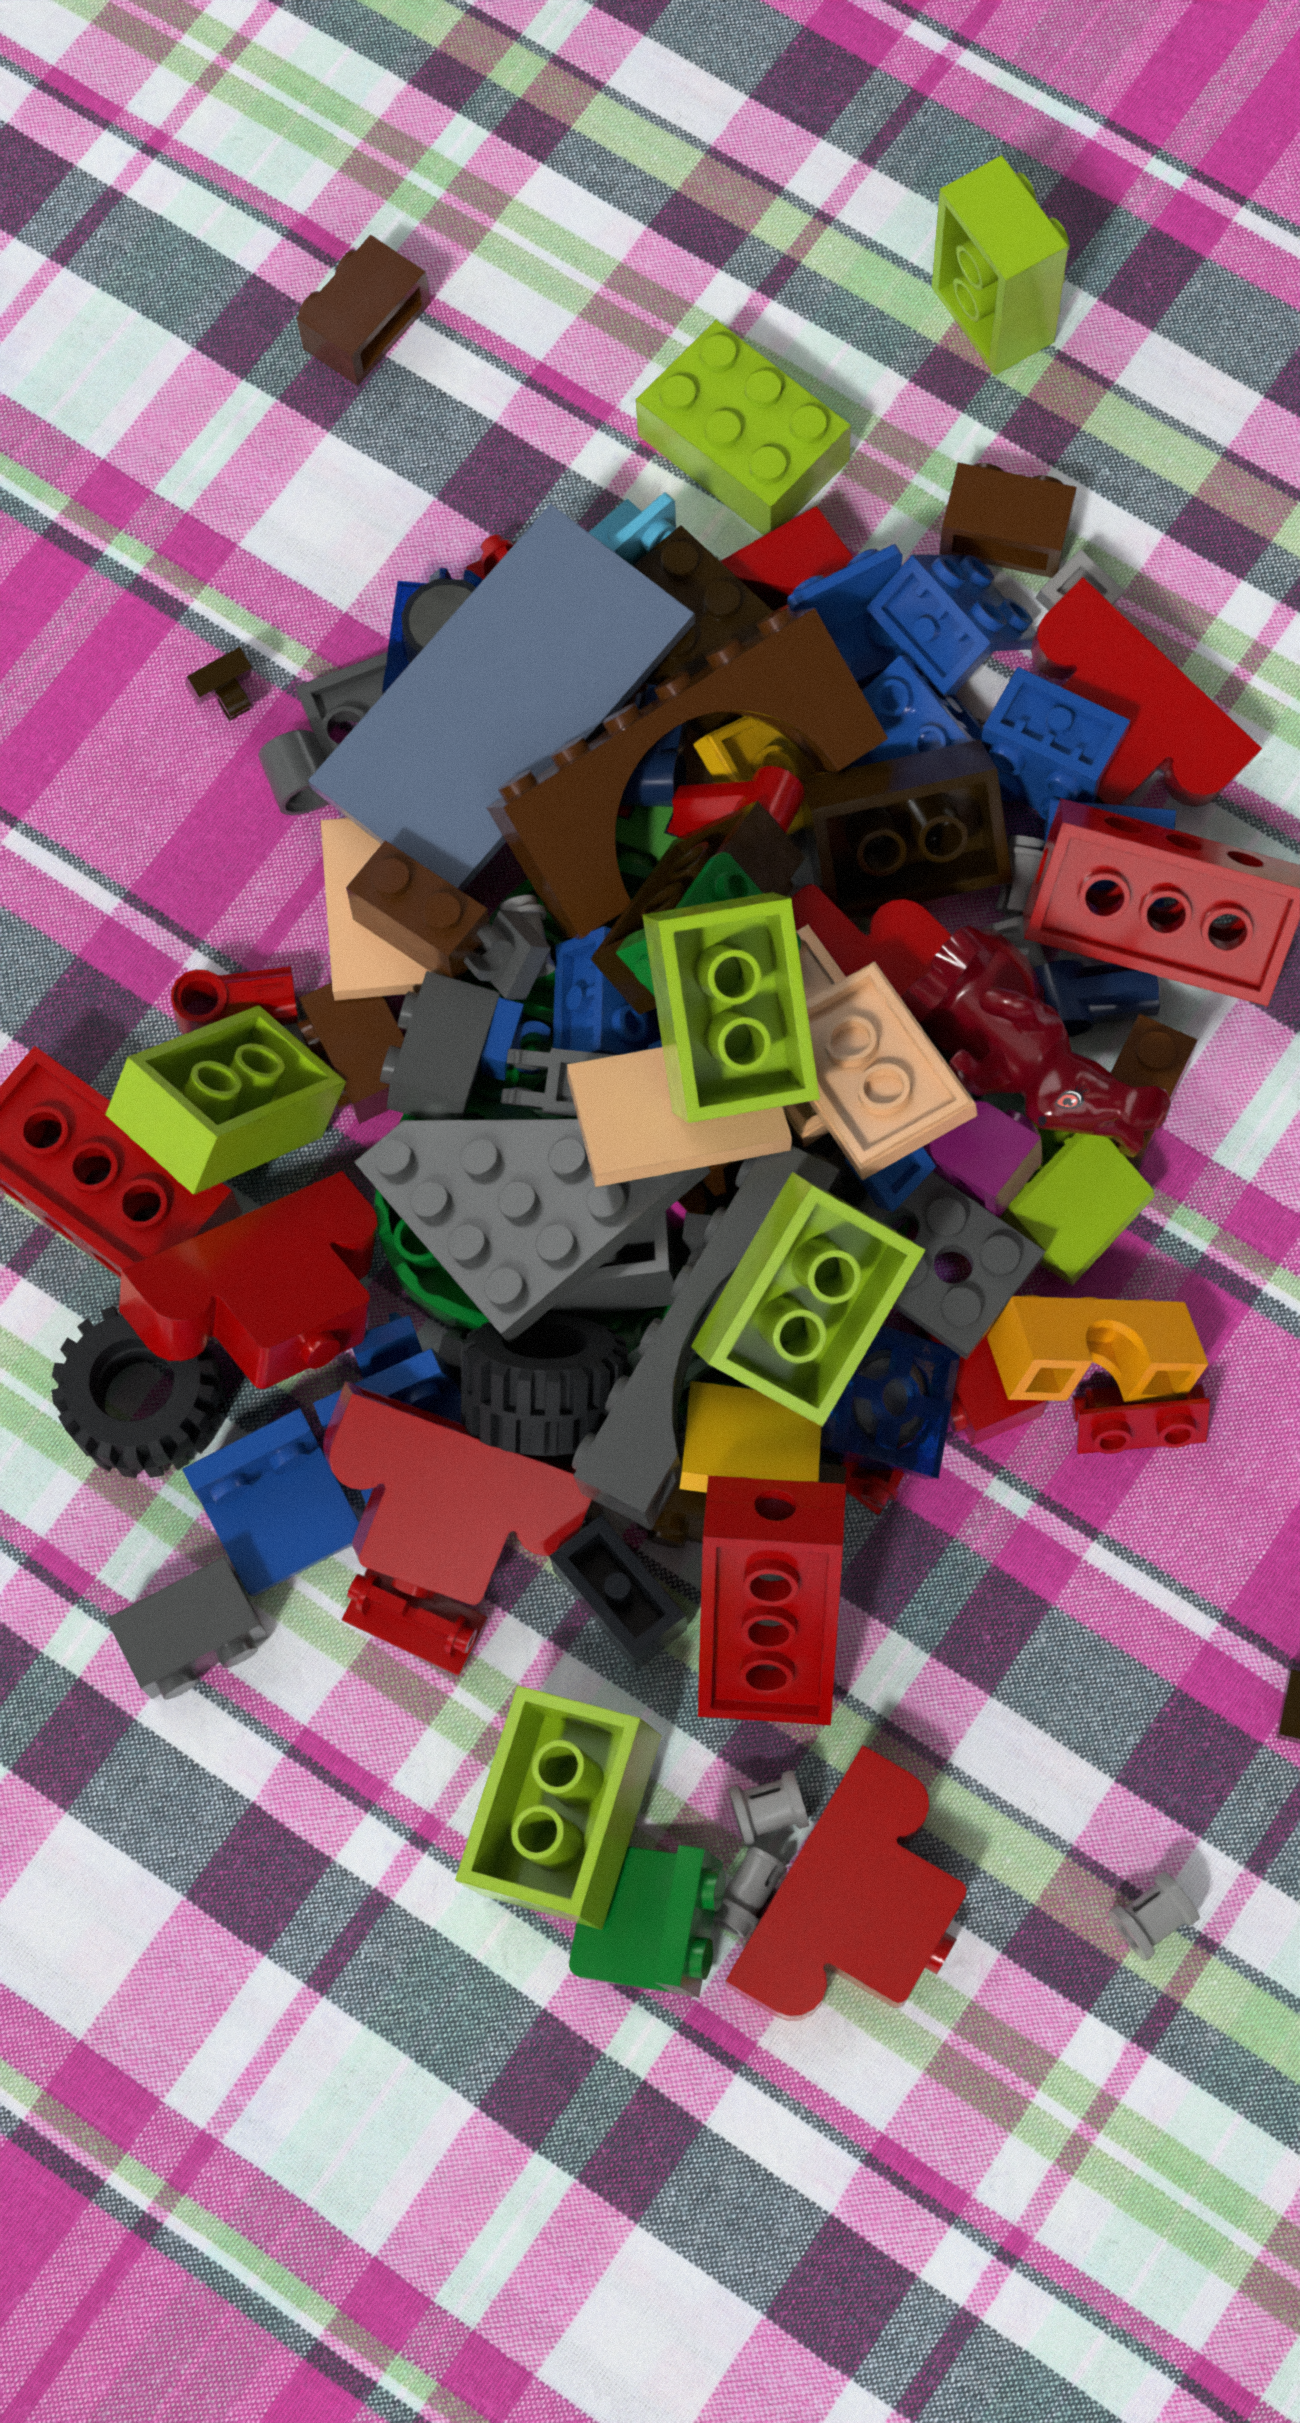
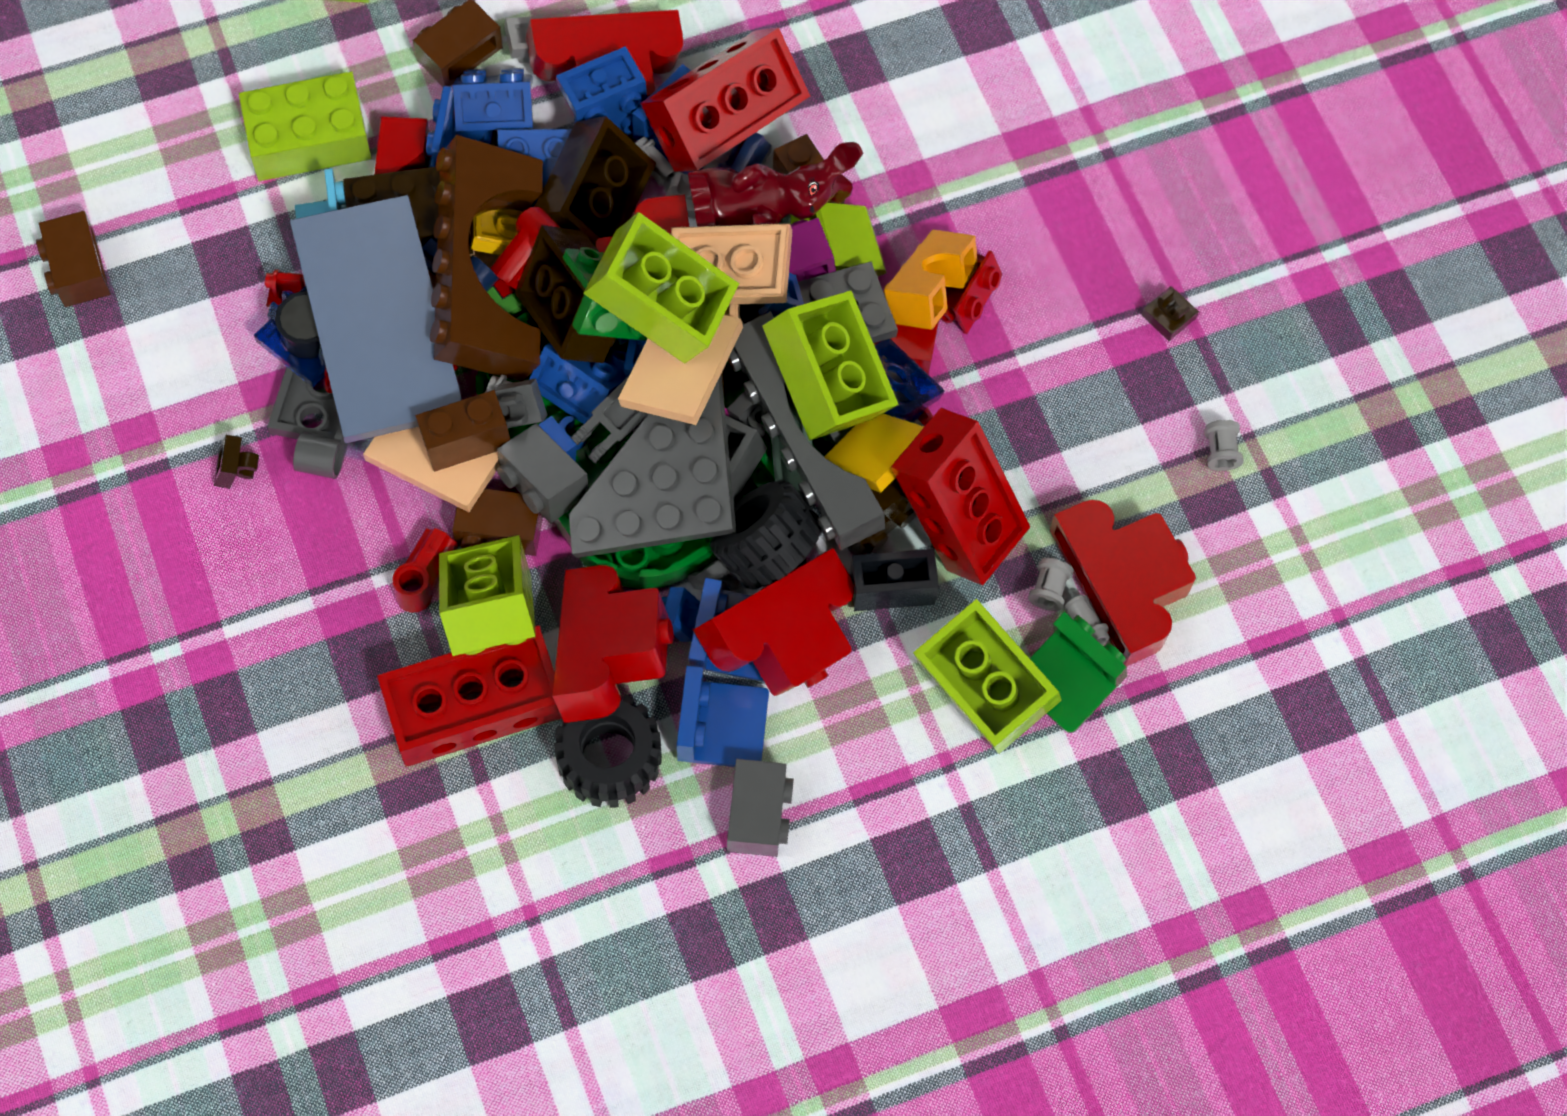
camera: 65 degrees left, 5 degrees down
(425, 1627) = (834, 694): red hinge -> none

